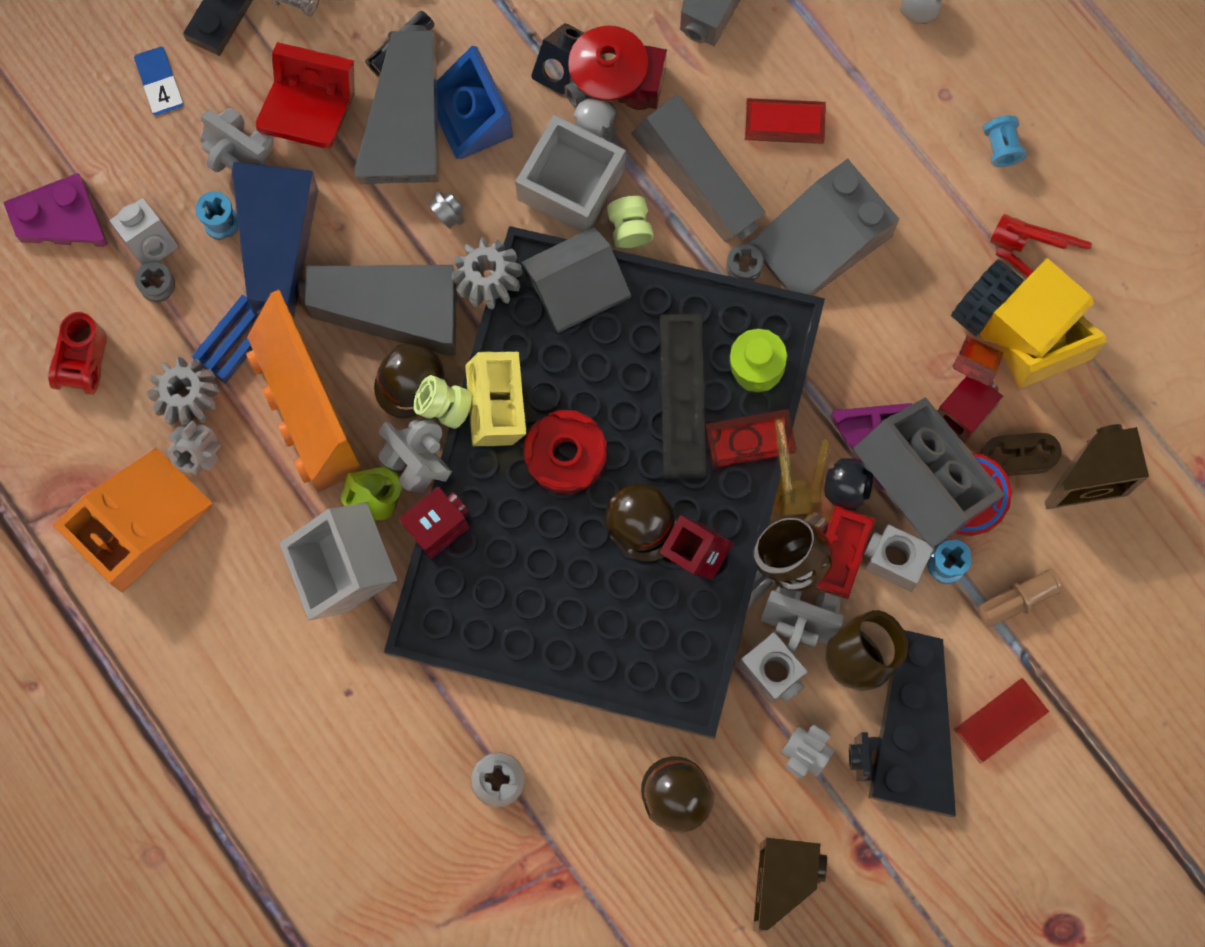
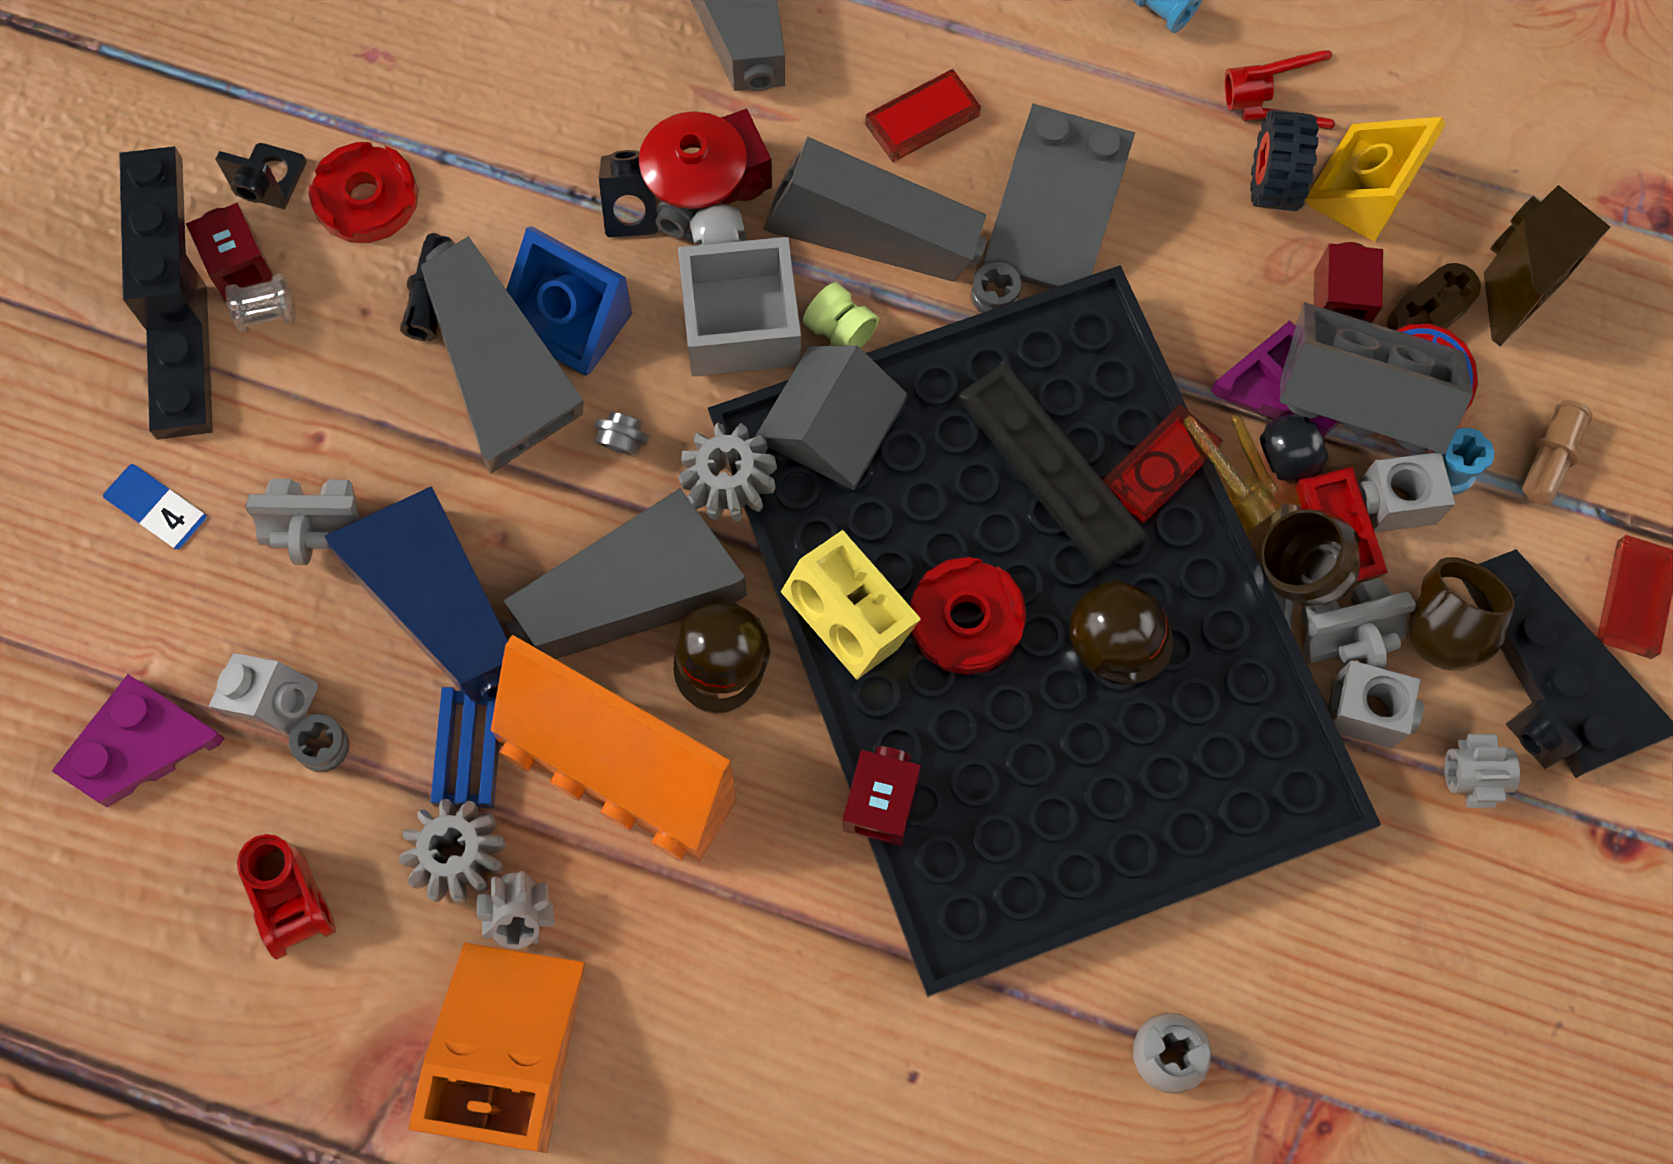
camera: 40 degrees left, 5 degrees down
(217, 204) = (331, 604): dark azure bush -> none
(307, 96) = (359, 407): red bracket -> none
(338, 561) = (800, 923): light grey piece -> none
(371, 488) = (768, 826): lime piece -> none
(418, 450) = (791, 728): light grey hips -> none
(441, 401) = (789, 649): yellowish green wheel -> none
(676, 794) = (1387, 920): dark brown helmet -> none
(696, 547) = (1208, 618): dark red brick -> none
(758, 360) = (1108, 371): lime piece -> none
(785, 878) = (1585, 937): dark brown slope -> none
(978, 360) = (1328, 230): clear red tile -> none
(1038, 311) = (1356, 139): yellow slope -> none

